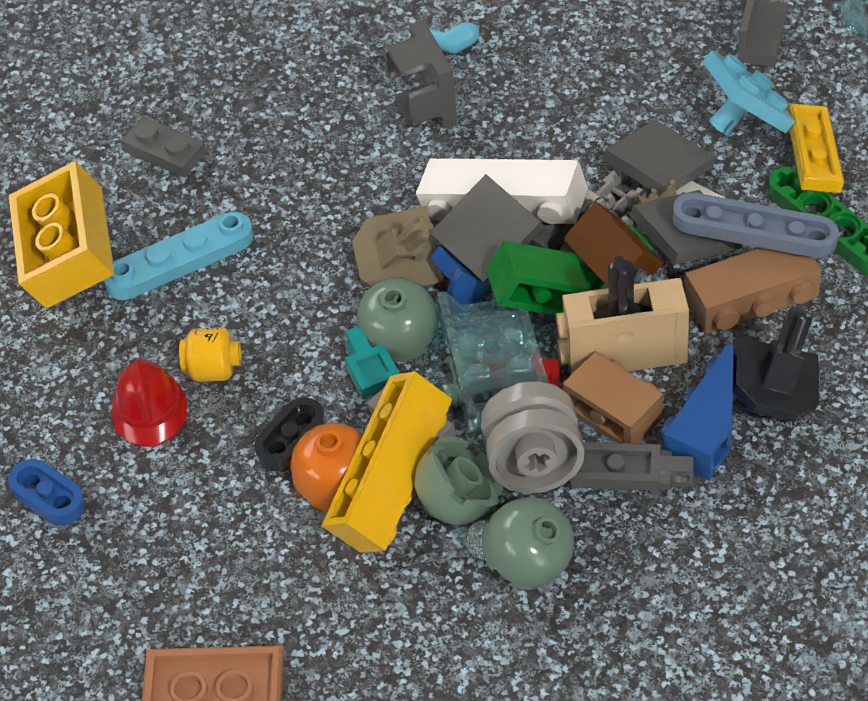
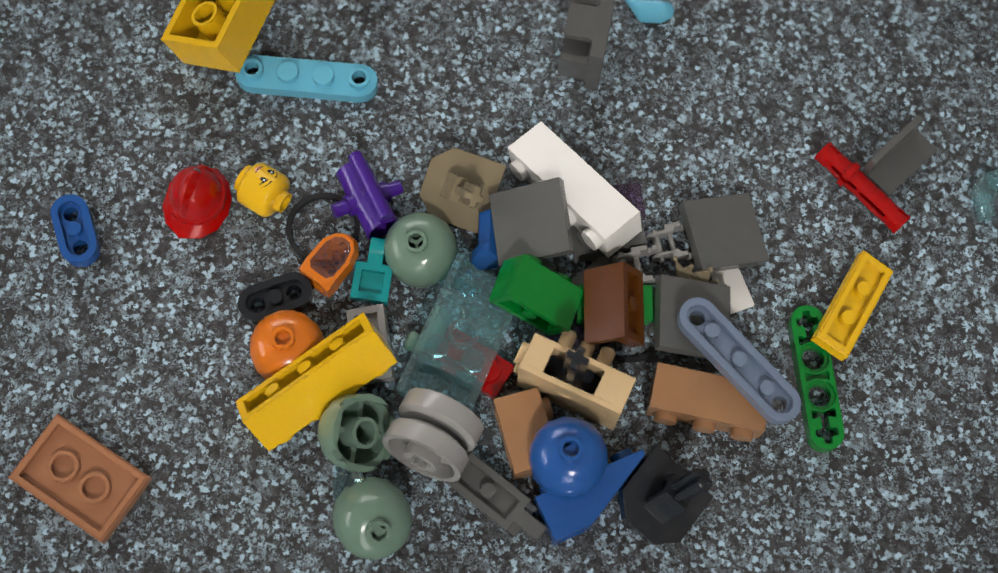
camera: 25 degrees right, 20 degrees up
(290, 330) = (313, 197): none -> black piece
(312, 304) = (366, 196): none -> dark purple pin
(322, 374) = (330, 262): none -> rock
(668, 379) = (552, 460): none -> blue cylinder
(745, 93) = (830, 223): medium azure plate -> none
(771, 66) = (862, 187): none -> red pin

